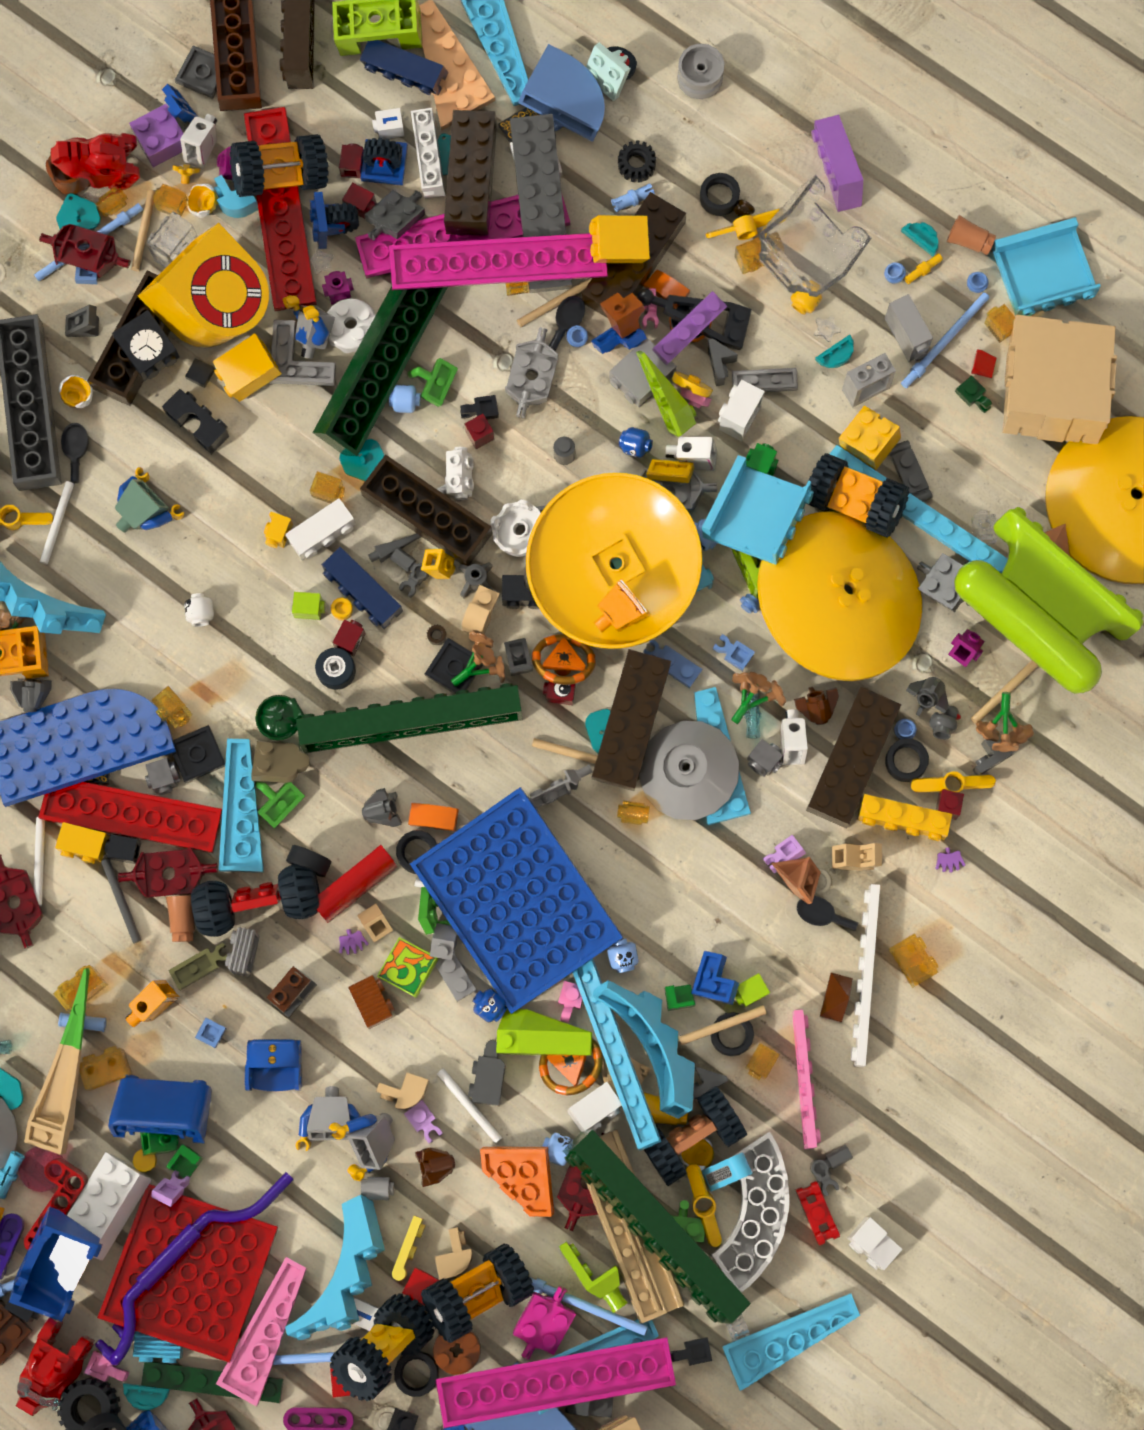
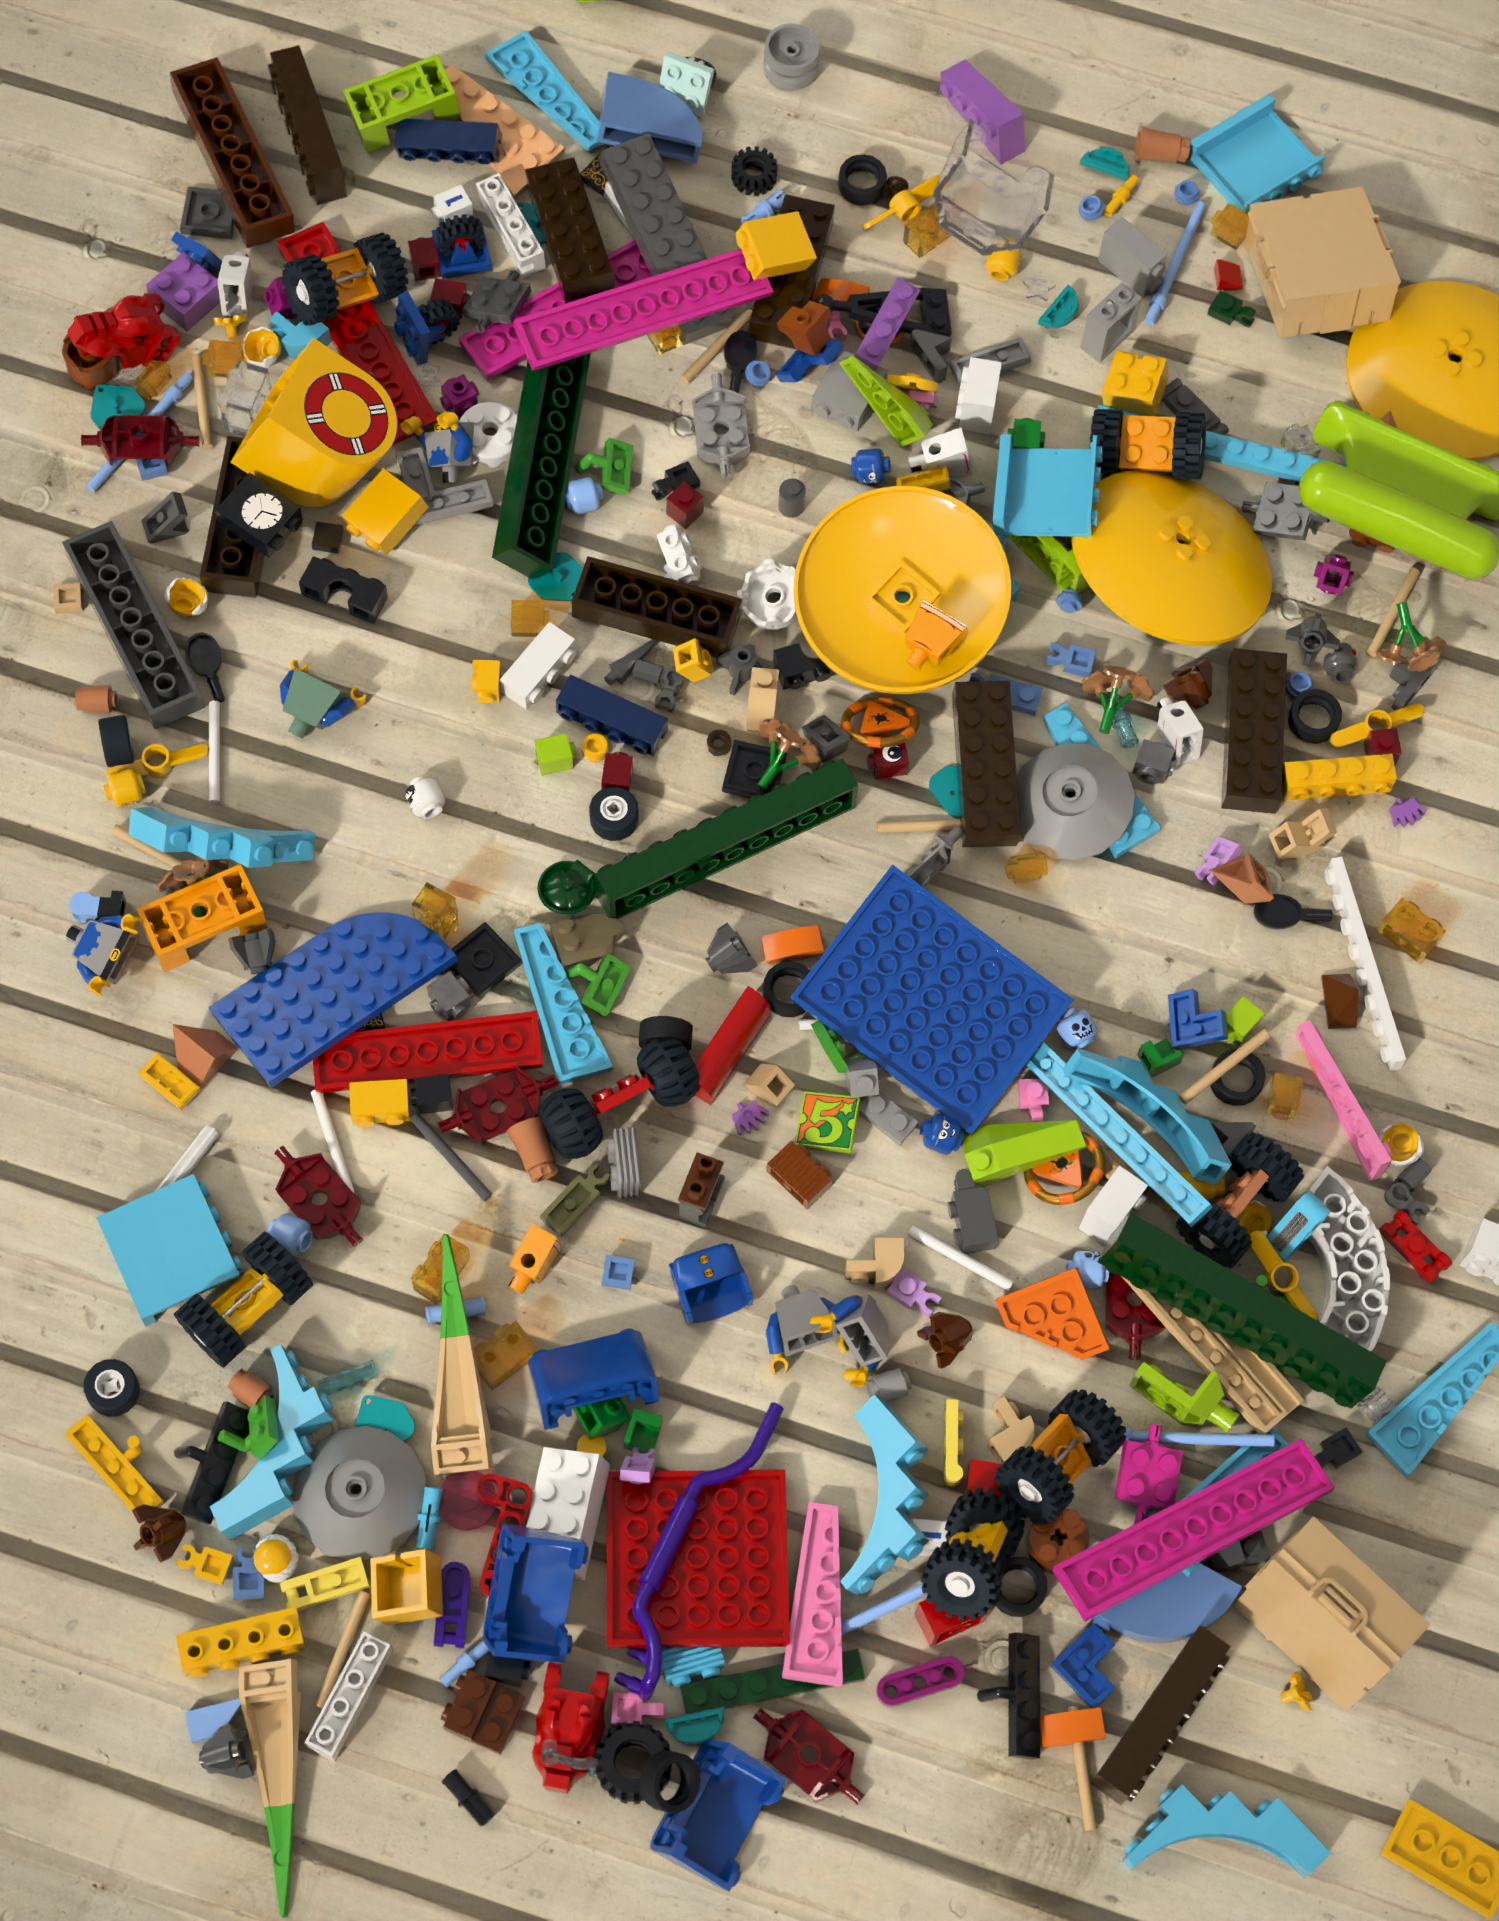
camera: 25 degrees left, 10 degrees down
(835, 1130) = (1403, 1142): none -> yellow hair

